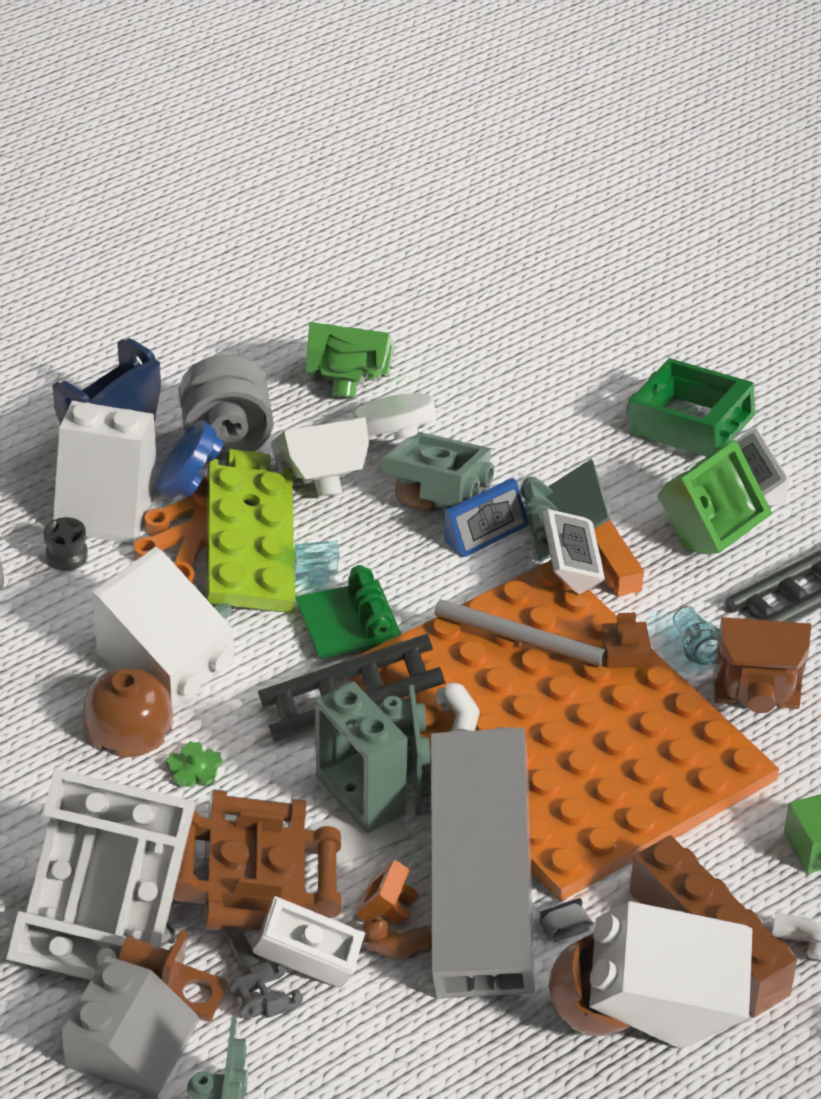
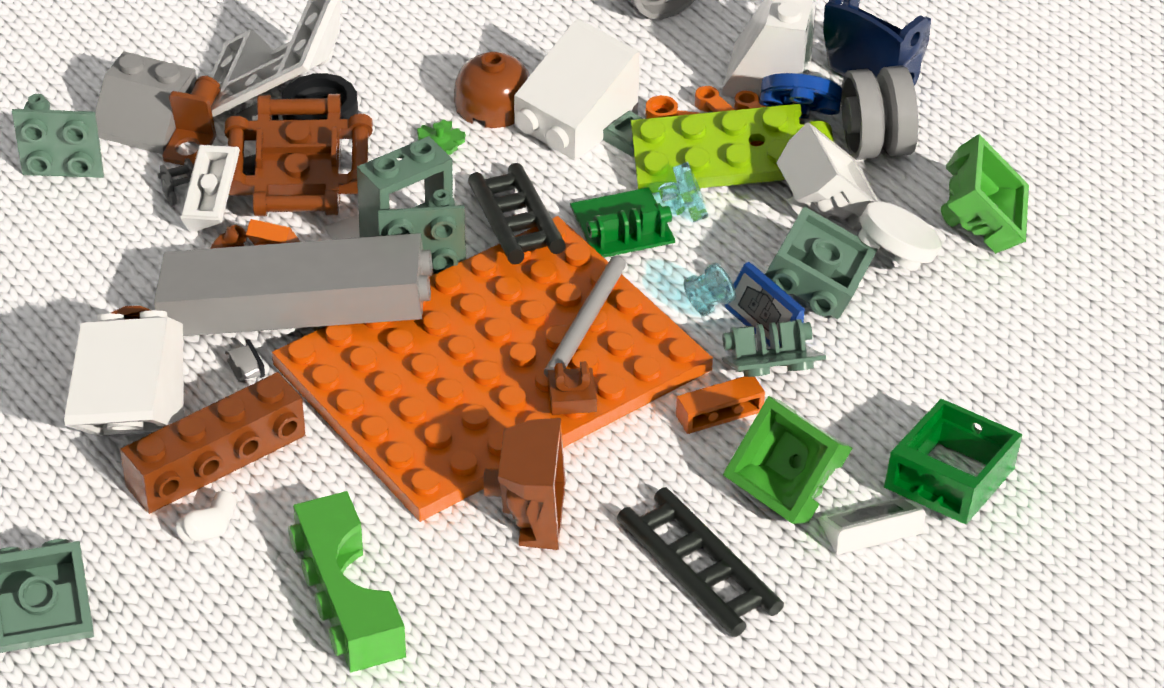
camera: 90 degrees right, 0 degrees up
(65, 544) = (702, 45): pearl dark grey wheel -> none
(457, 698) = (476, 276): white arm -> none
(468, 548) = (709, 289): none -> clear light blue wheel
(573, 550) = (694, 342): slope -> none
(696, 635) = (601, 458): clear light blue cone -> none

